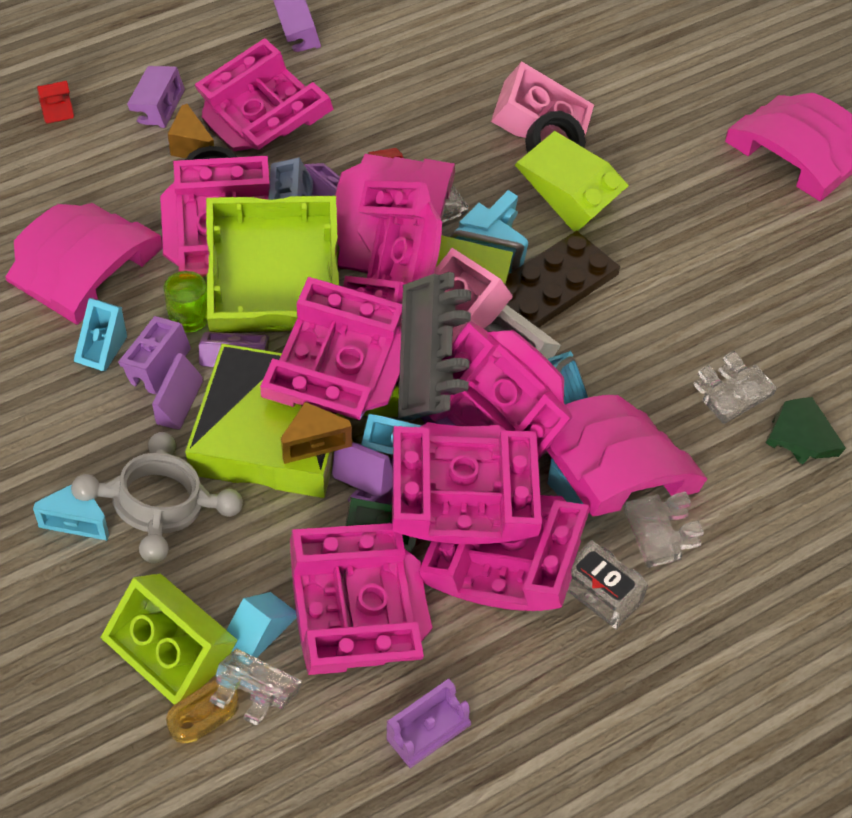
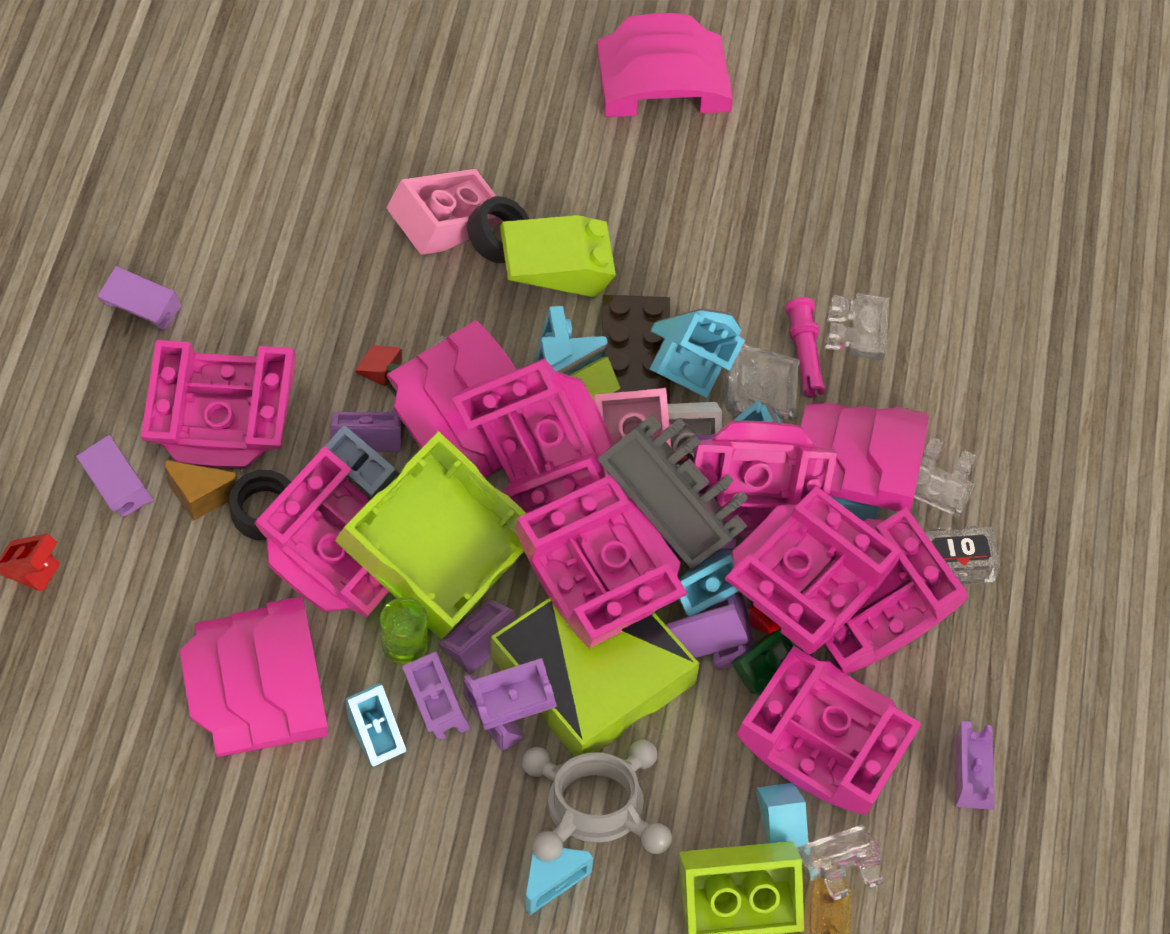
camera: 50 degrees left, 5 degrees up
(182, 380) = (513, 694): none -> medium lavender hinge
(314, 433) = (661, 636): pearl gold slope -> none
(581, 298) = (697, 347): none -> medium azure piece
(612, 360) = (762, 378): none -> clear slope
(684, 361) = (804, 333): none -> dark pink pin
(804, 431) = (939, 316): dark green slope -> none

